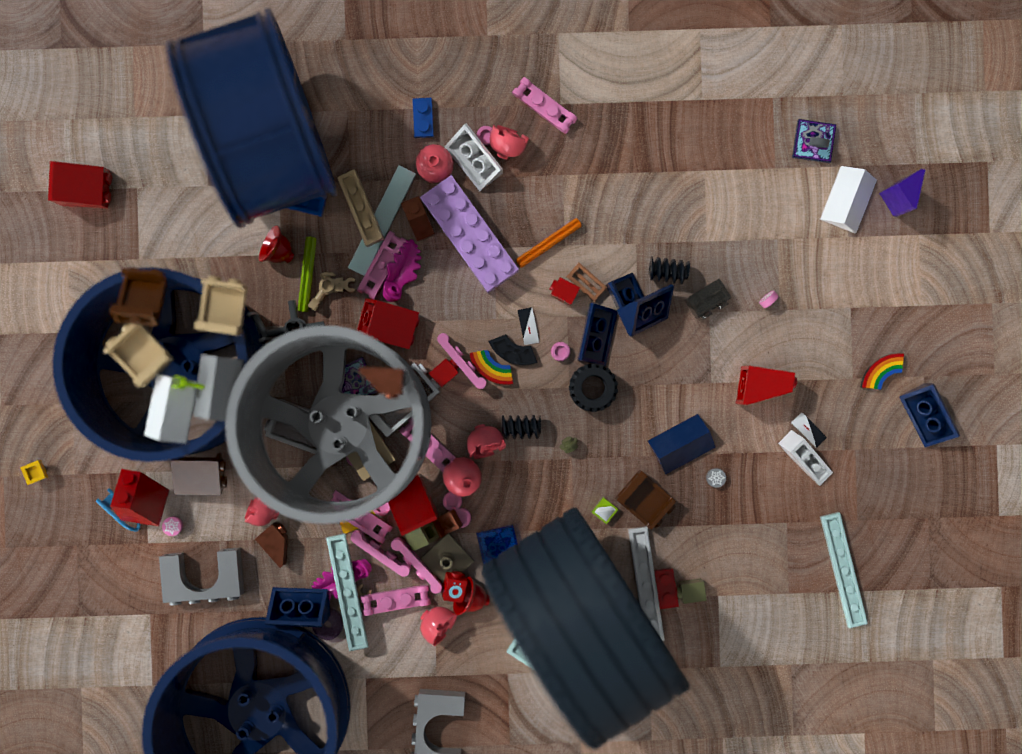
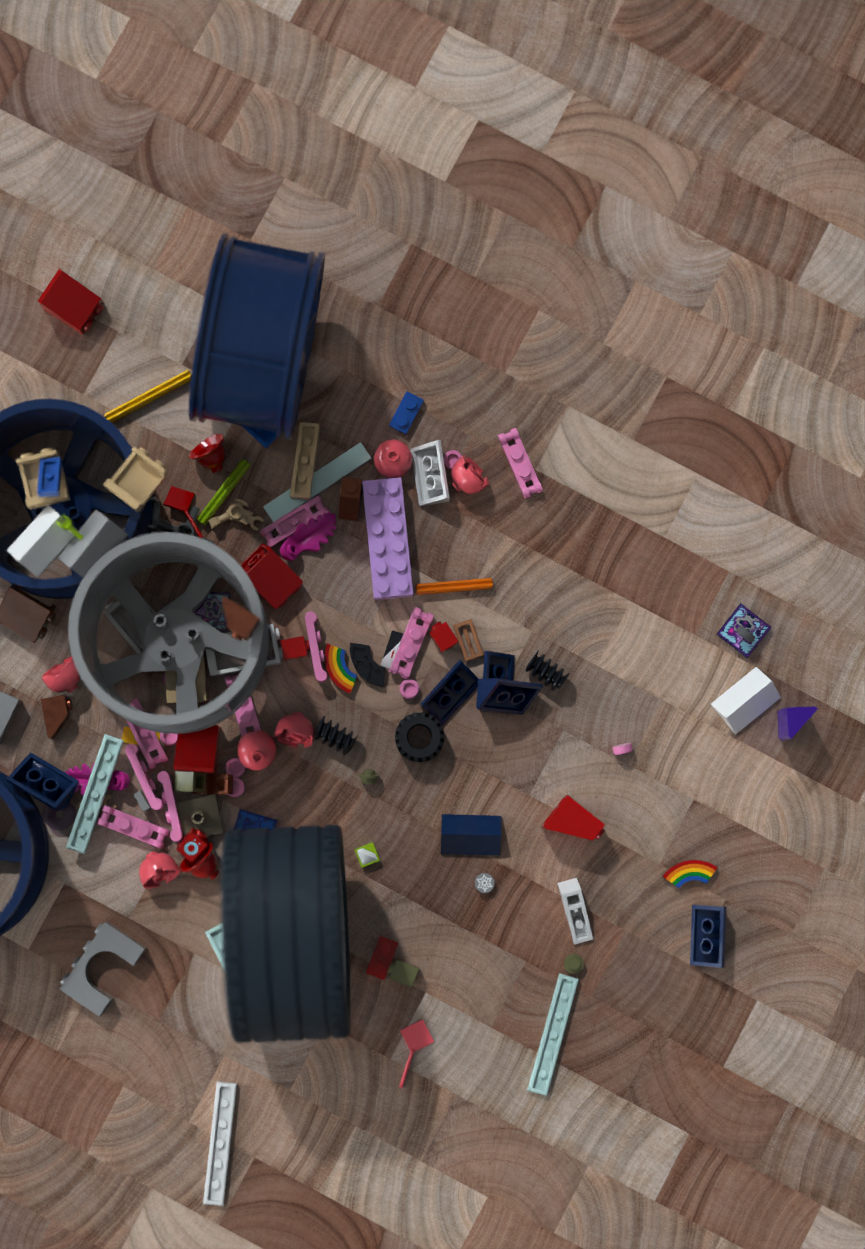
camera: 25 degrees right, 5 degrees down
(140, 296) = (73, 432): reddish brown panel -> none
(142, 349) = (49, 477): none -> blue plate
(194, 231) = (148, 396): none -> yellow axle
(275, 302) = (181, 500): none -> red piece
(390, 574) = (142, 801): none -> light grey tile
(539, 312) = (410, 643): none -> bright pink plate
(645, 576) = (369, 937): white tile -> none
(646, 500) = (409, 866): reddish brown panel -> none
(707, 299) = (567, 717): clear smoke brick -> none
(732, 637) = (416, 1037): none -> coral piece
(809, 429) = (593, 888): sticker -> none
(828, 502) = (573, 963): none -> olive plate

